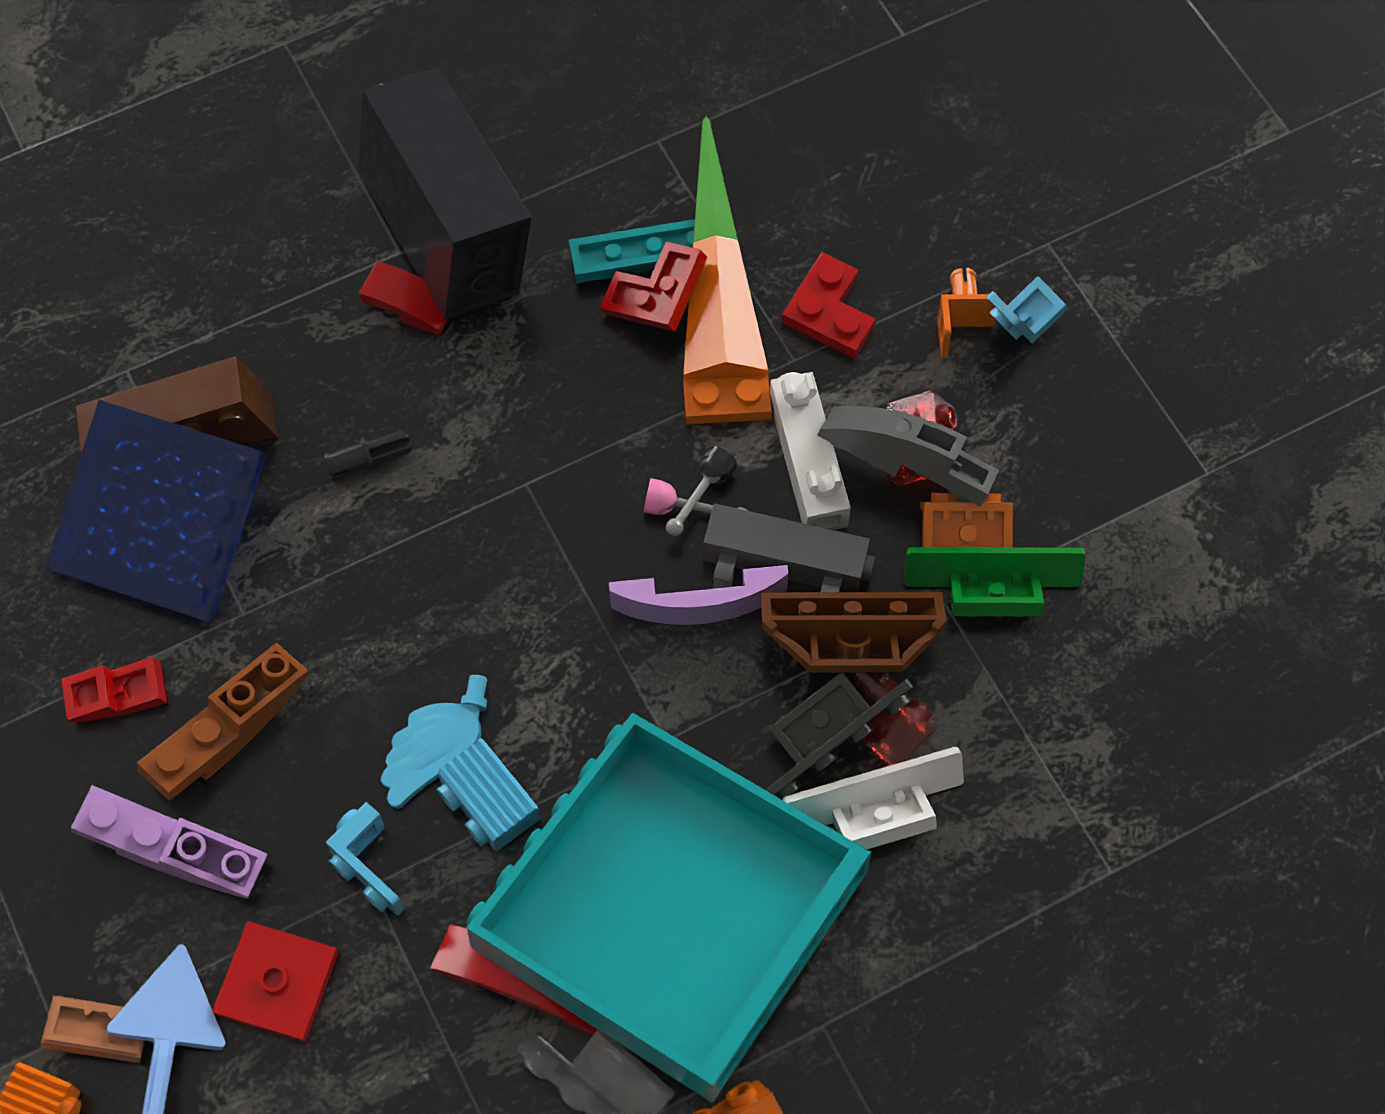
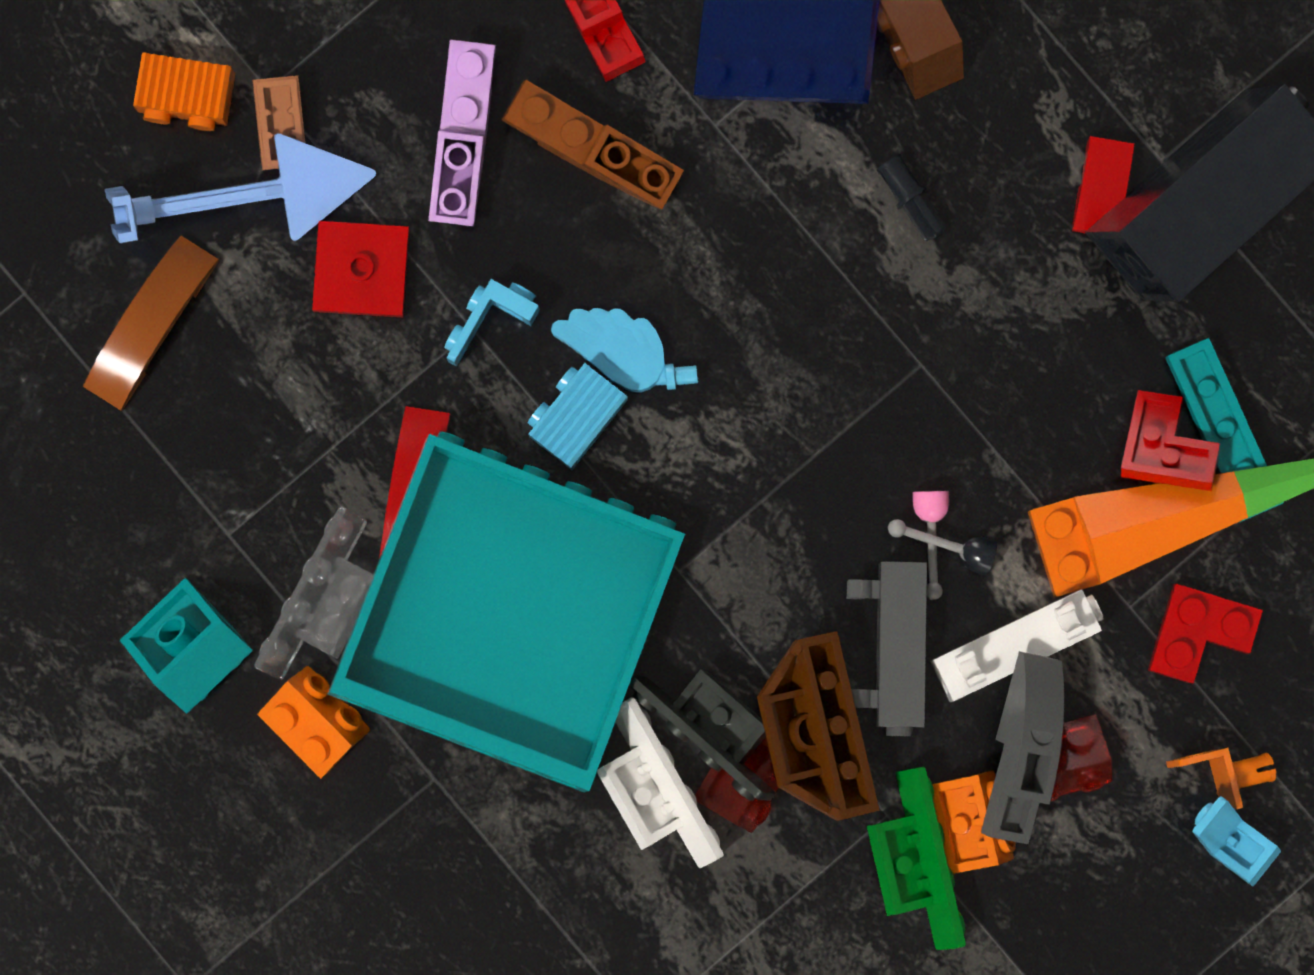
camera: 75 degrees right, 20 degrees up
(639, 599) = (849, 624): lavender slope -> none

